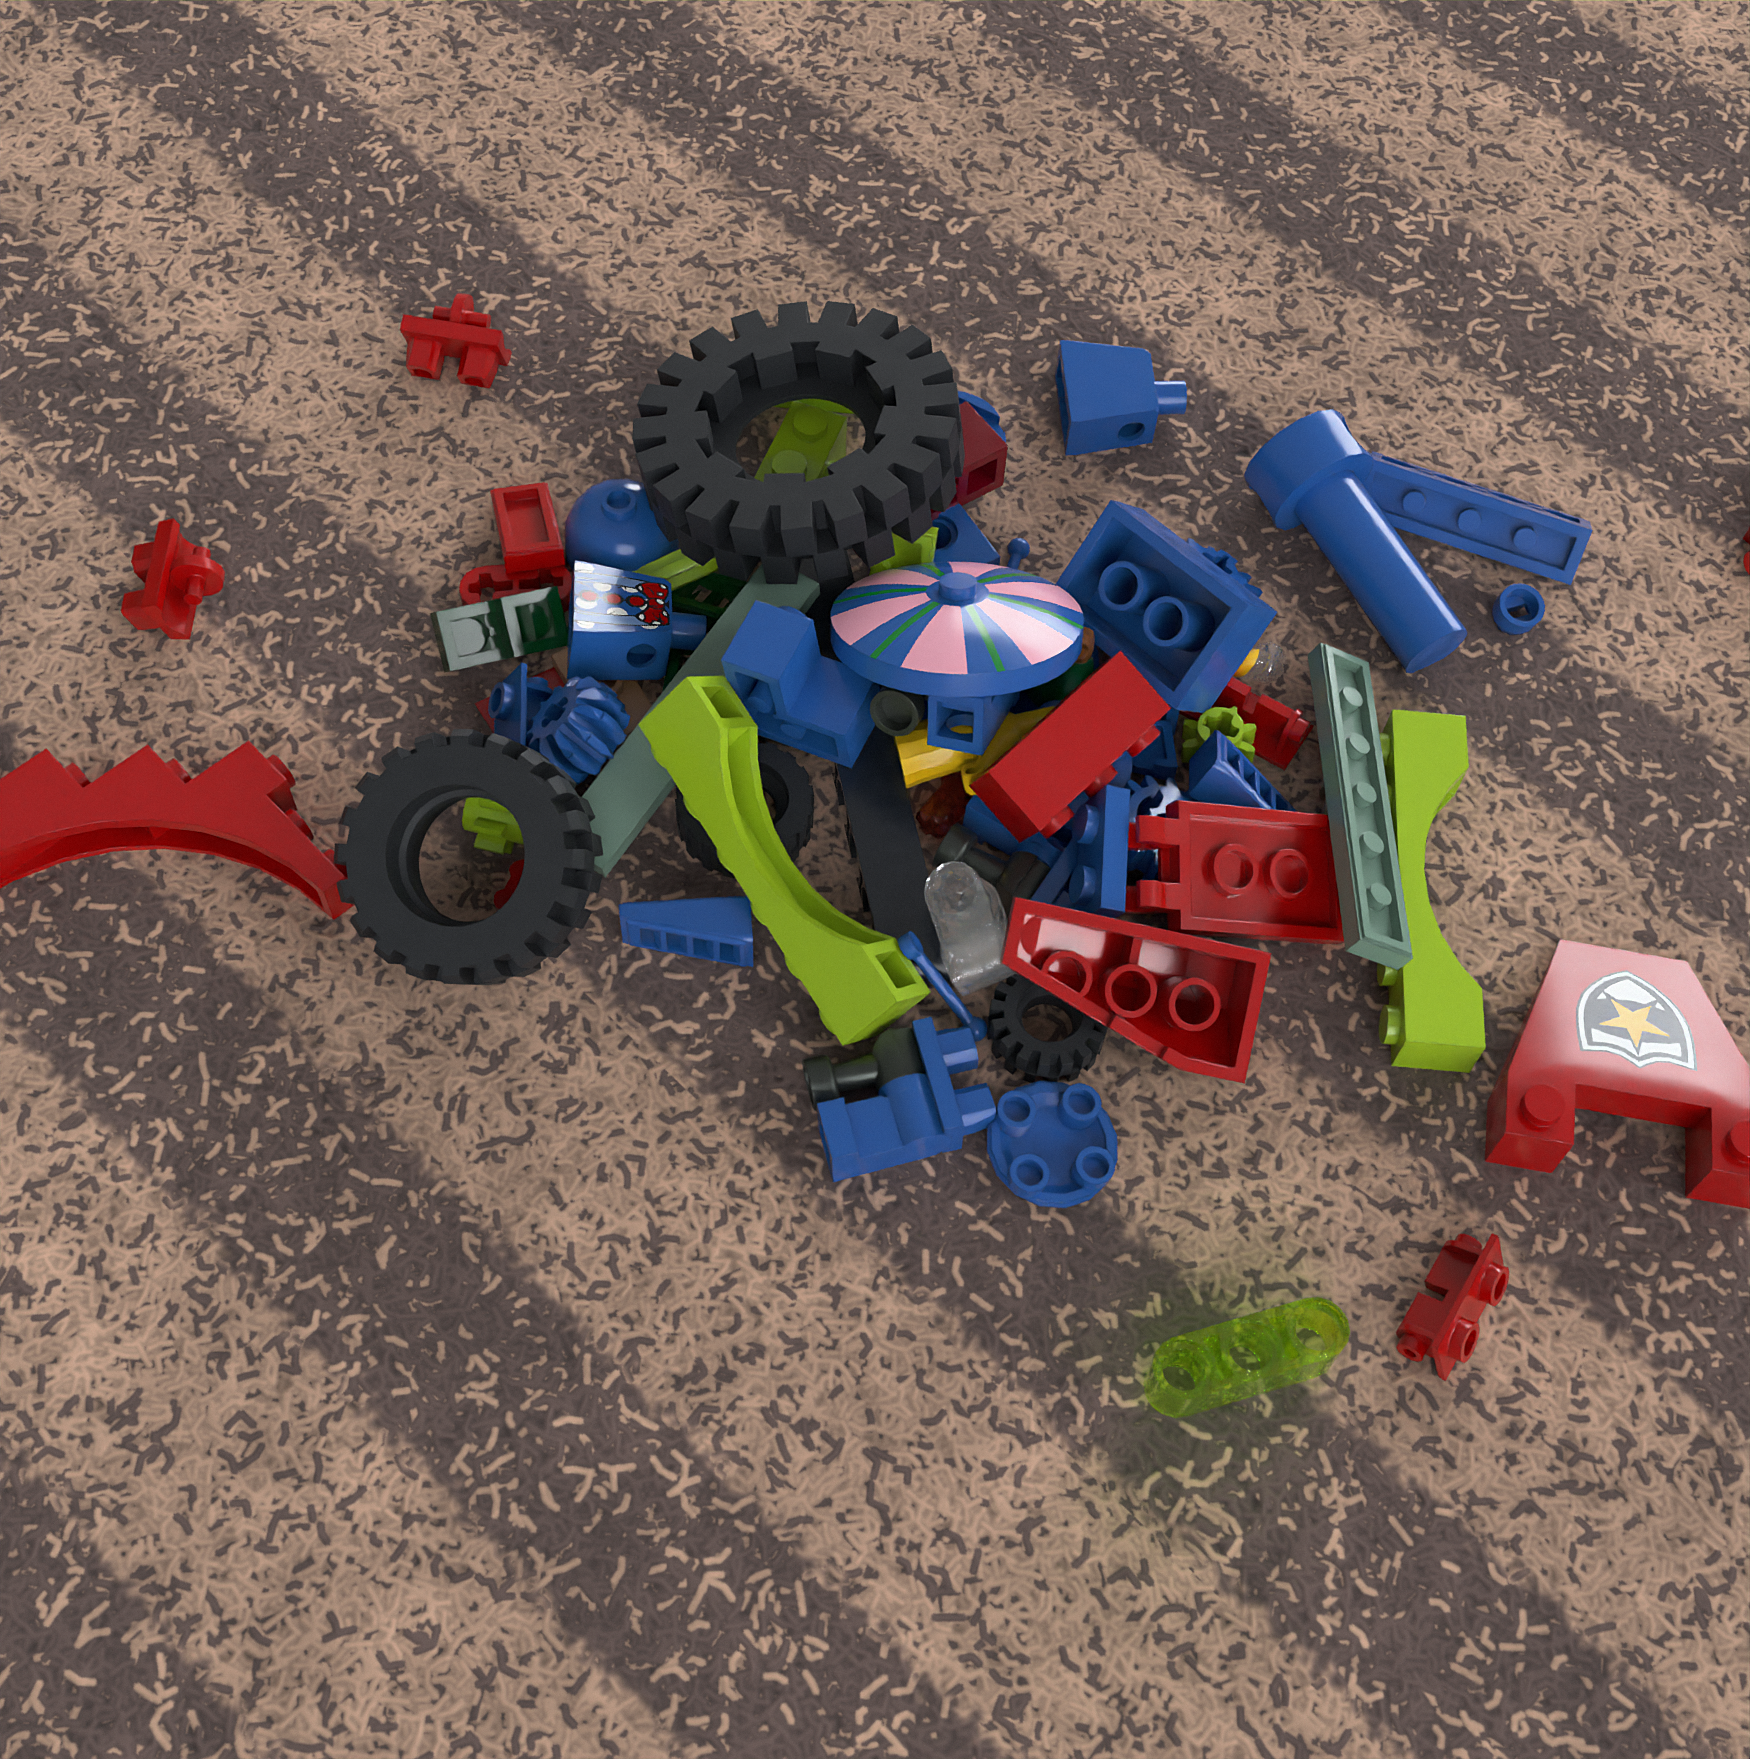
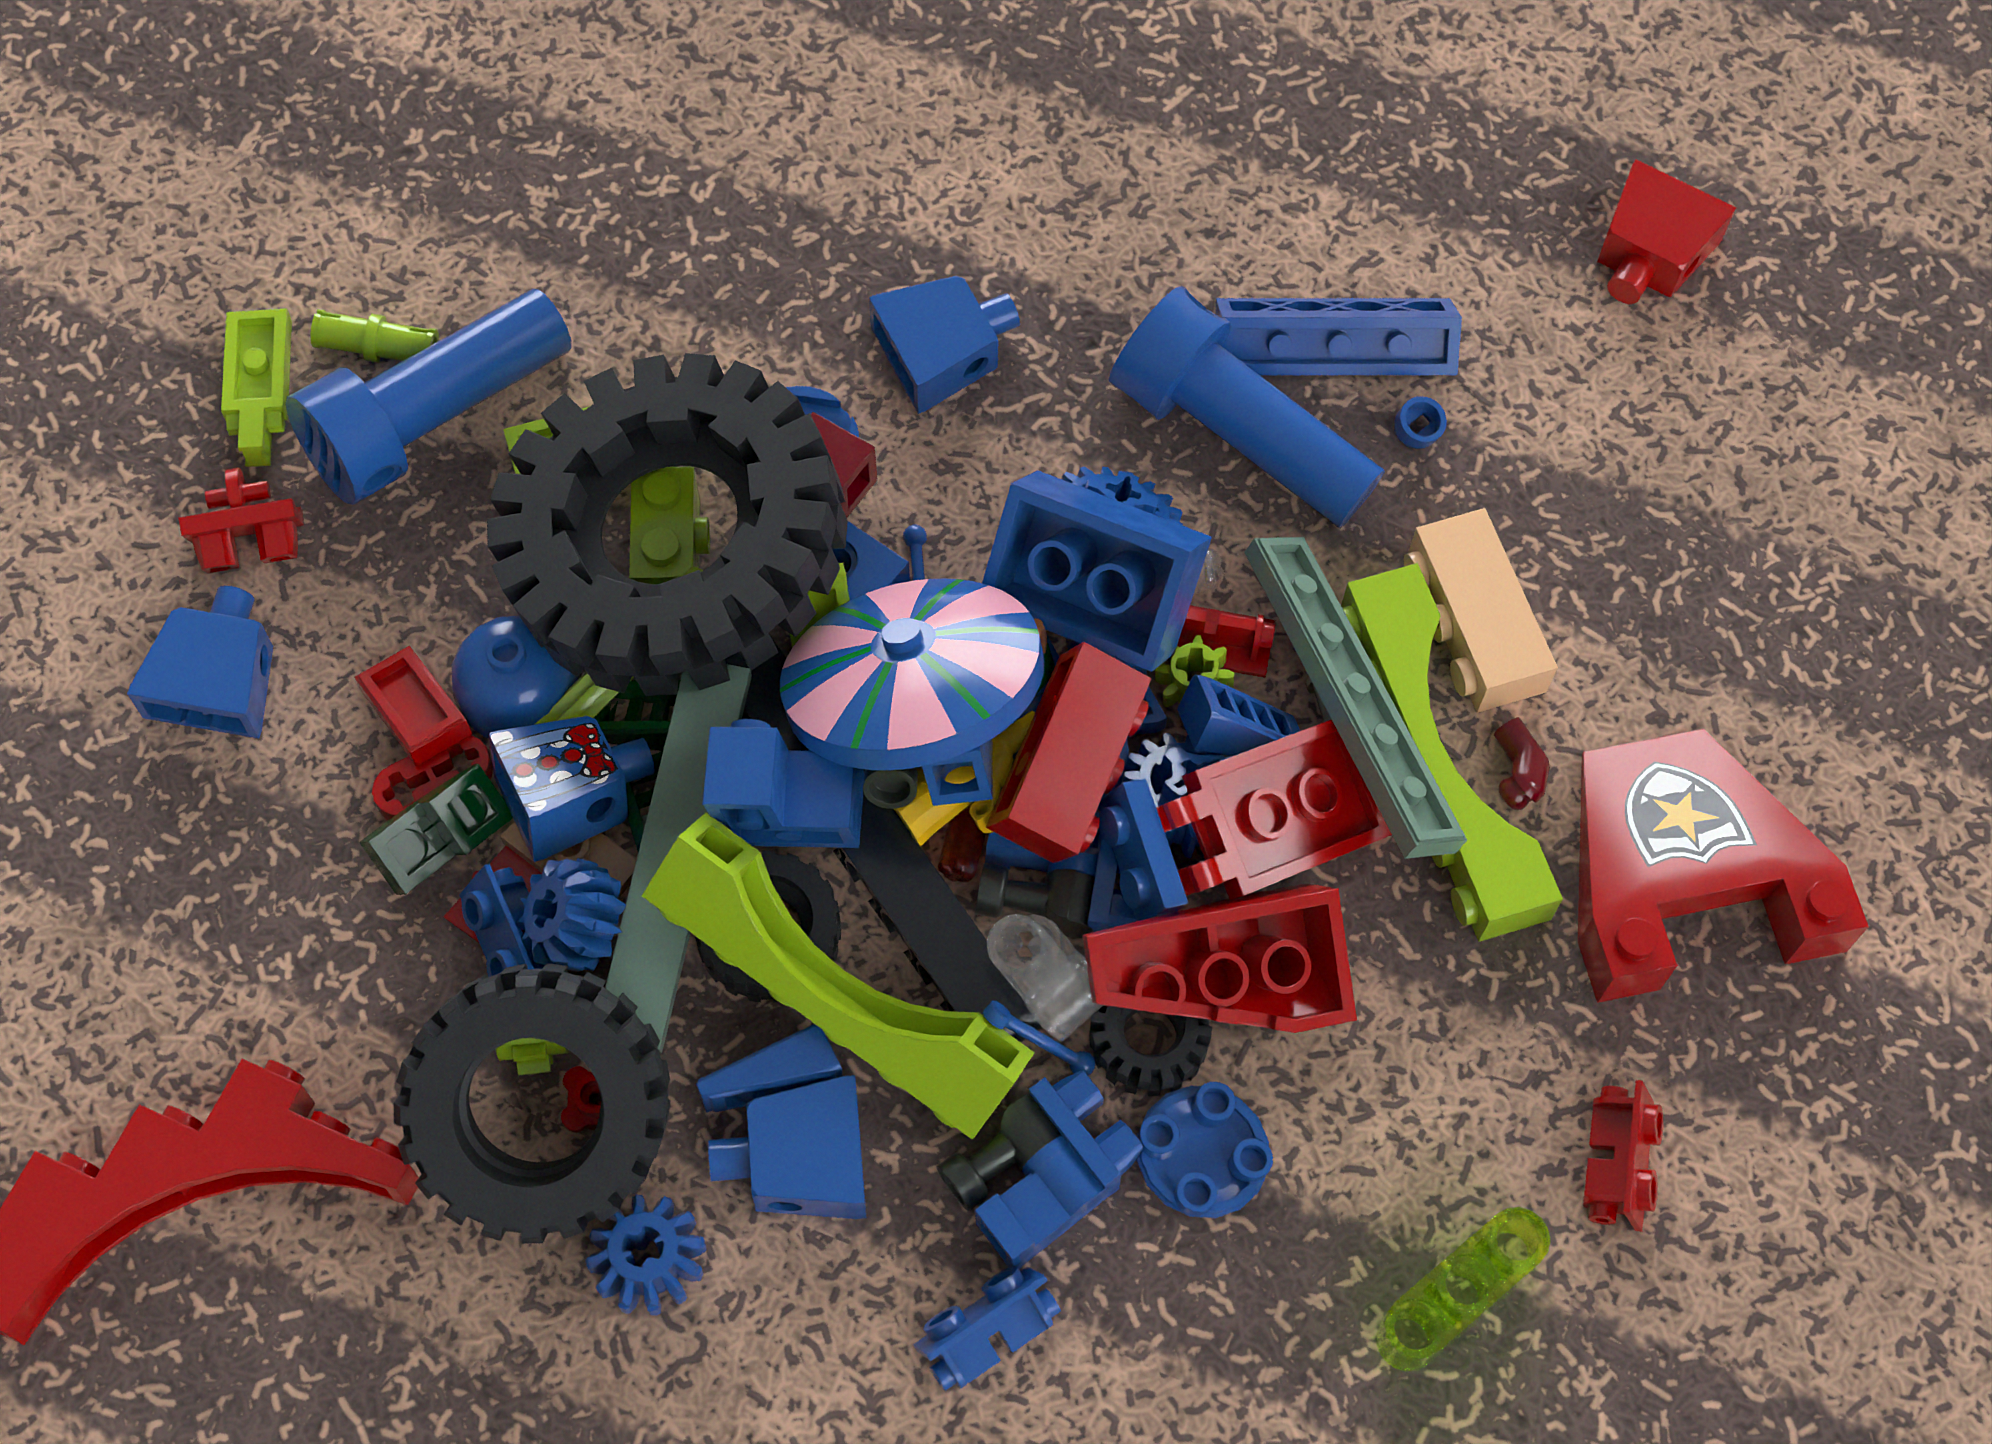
camera: 20 degrees left, 5 degrees up
(174, 580) = (76, 909): red hips -> none
(373, 440) = (208, 668): none -> blue torso
(513, 1053) = (655, 1275): none -> blue gear
(520, 243) = (256, 379): none -> lime hinge
(583, 298) = (359, 428): none -> blue piece
(631, 243) = (369, 336): none -> lime pin
(687, 1000) = (799, 1152): none -> blue torso
(814, 1208) = (962, 1336): none -> blue hinge
(1502, 931) = (1529, 765): none -> dark red arm
(1510, 783) = (1482, 612): none -> light nougat brick

